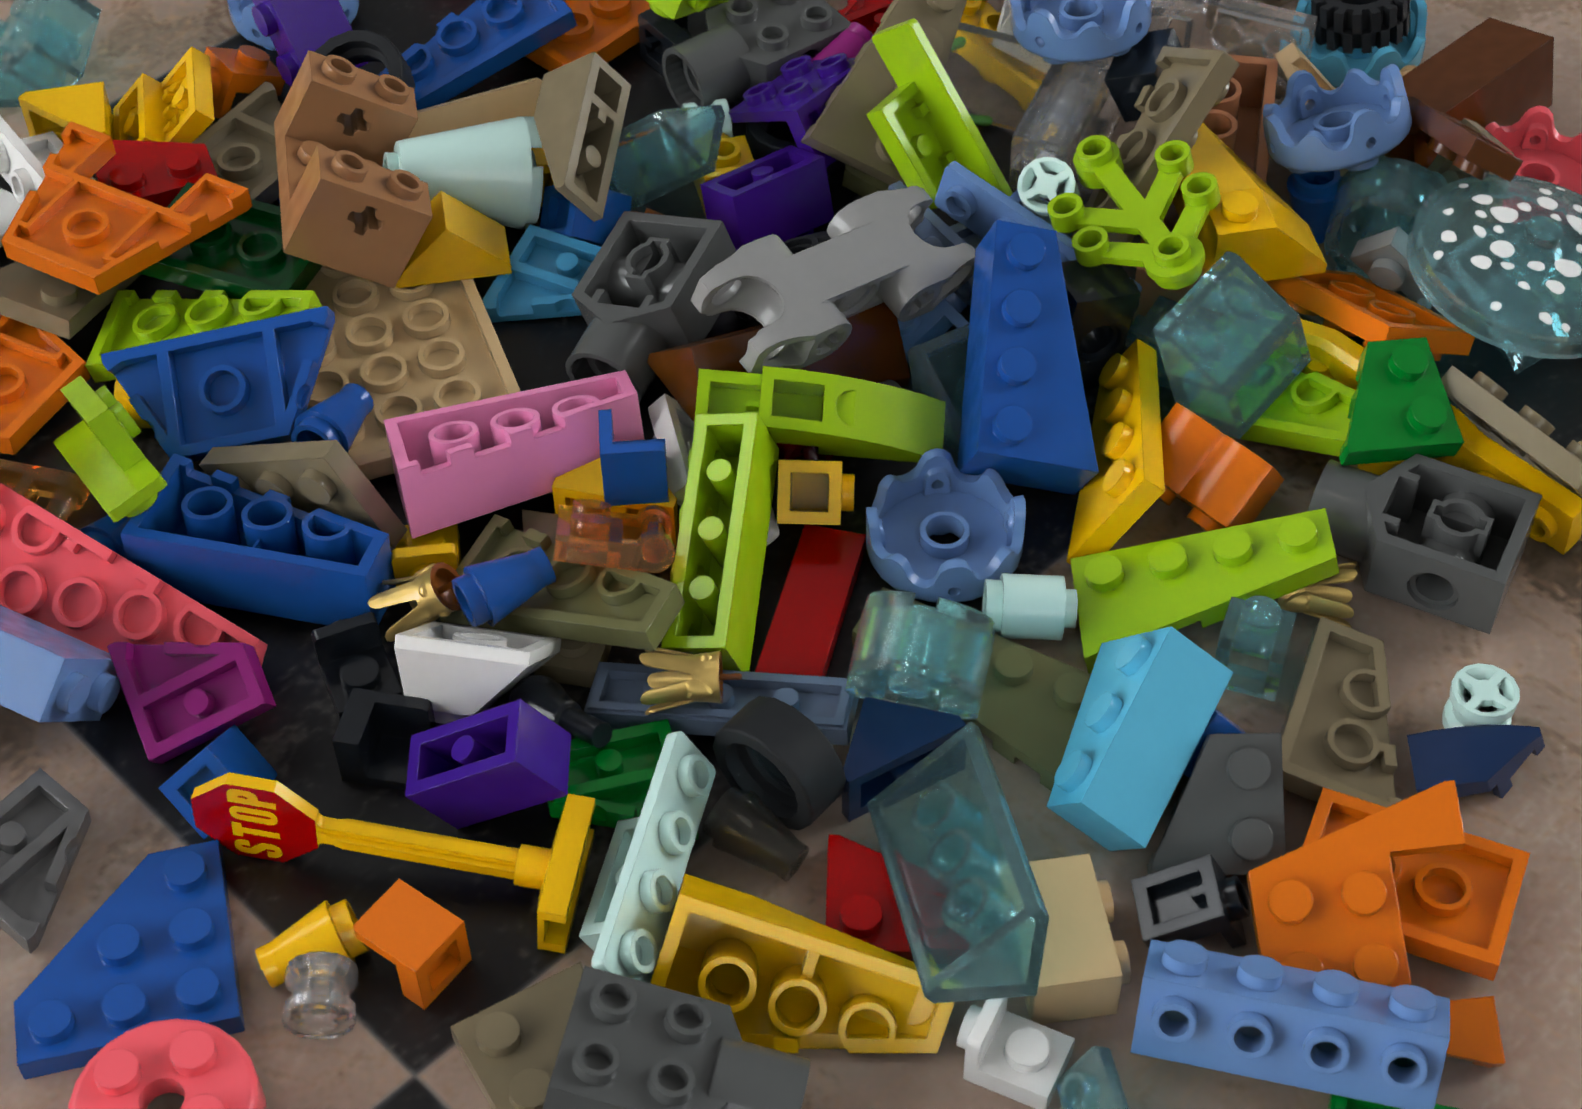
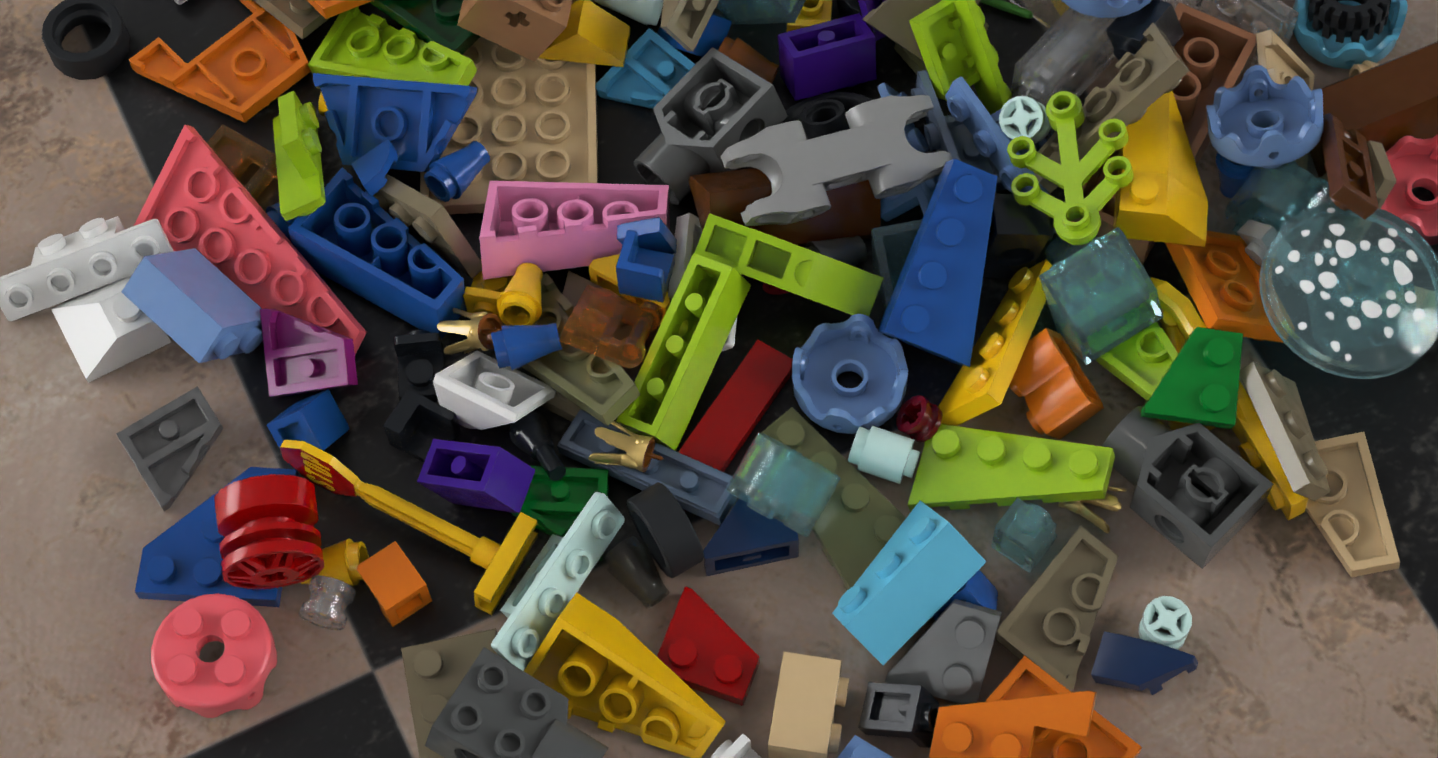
camera: 20 degrees right, 15 degrees up
(210, 905) = (269, 531): none -> red wheel
(219, 439) = (374, 166): none -> blue tile
(475, 536) = (522, 297): none -> yellow cone
(629, 419) = (651, 235): none -> blue tile
(813, 492) = (767, 320): yellow brick -> none
(961, 875) = (747, 649): clear light blue slope -> none
(1055, 553) = (919, 418): none -> dark red bush

